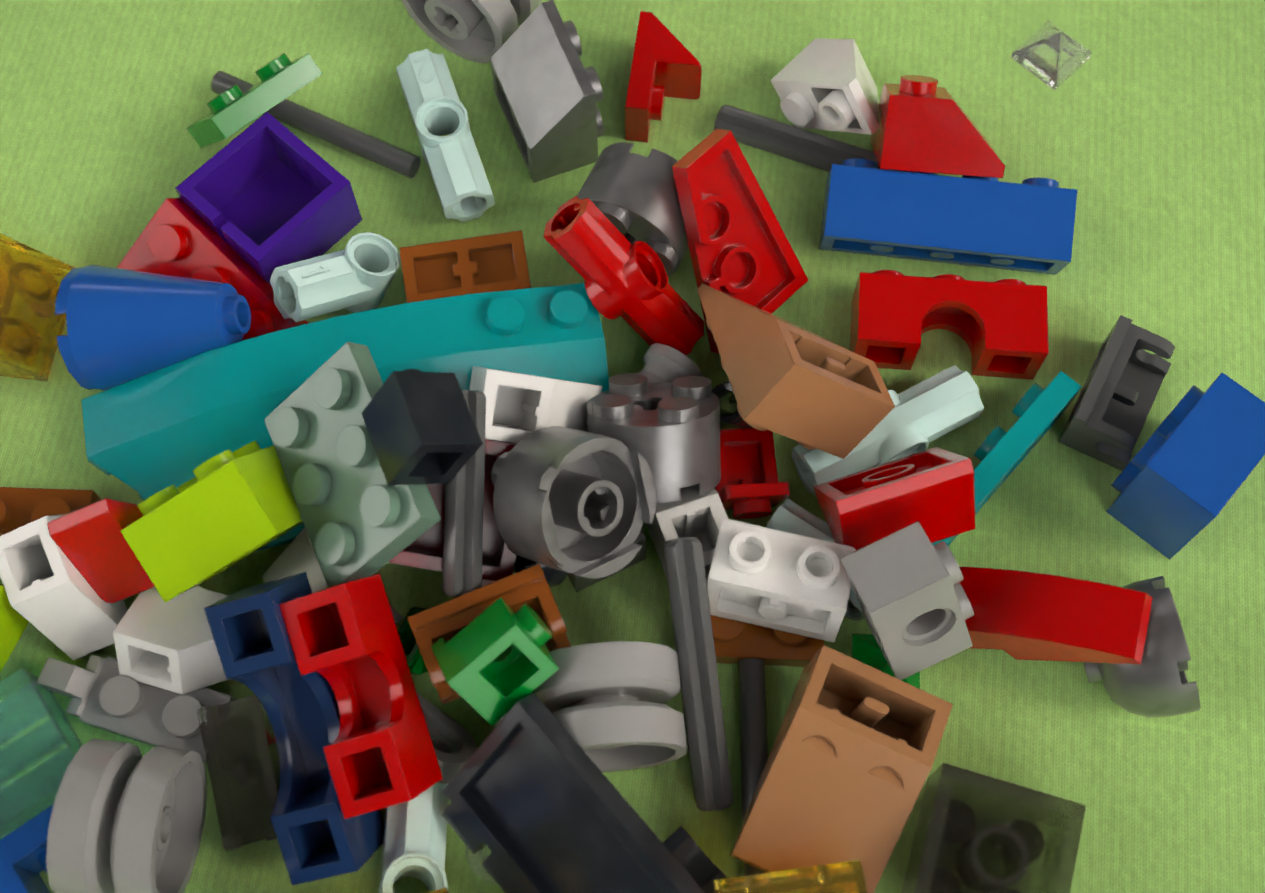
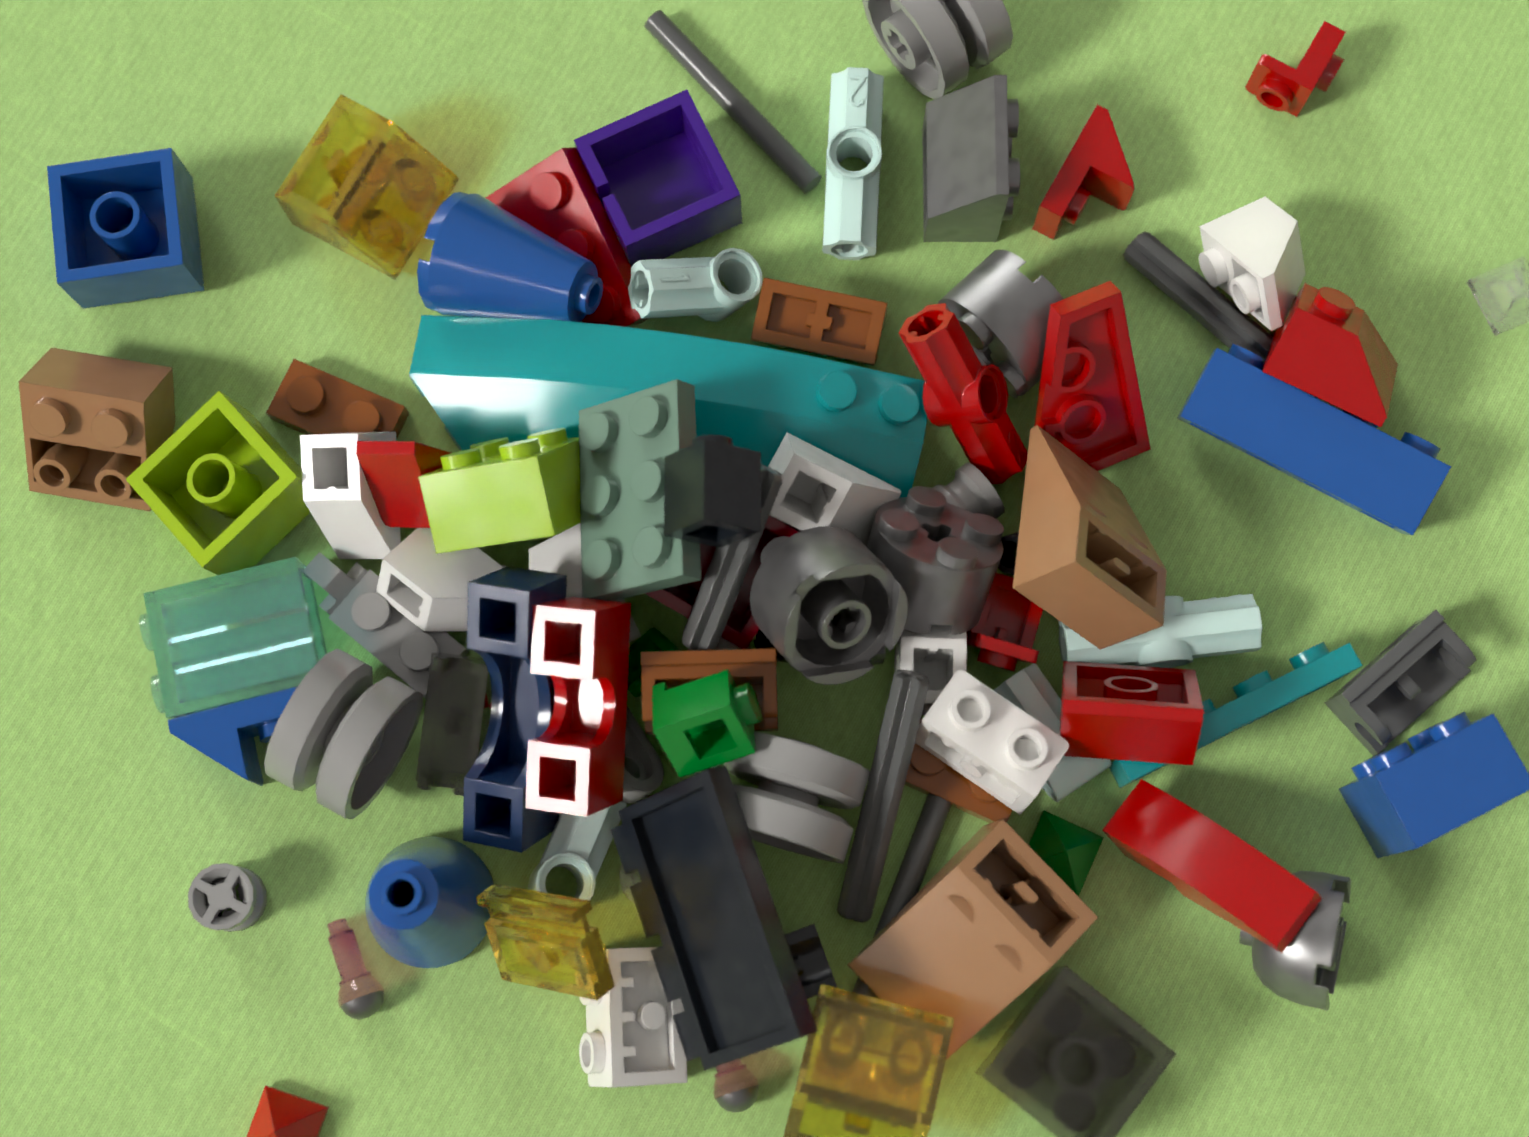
camera: 25 degrees right, 10 degrees up
(237, 108) = (680, 66): wing -> none
(911, 599) = (1097, 812): light grey brick -> none
(998, 320) = (1317, 563): red arch -> none

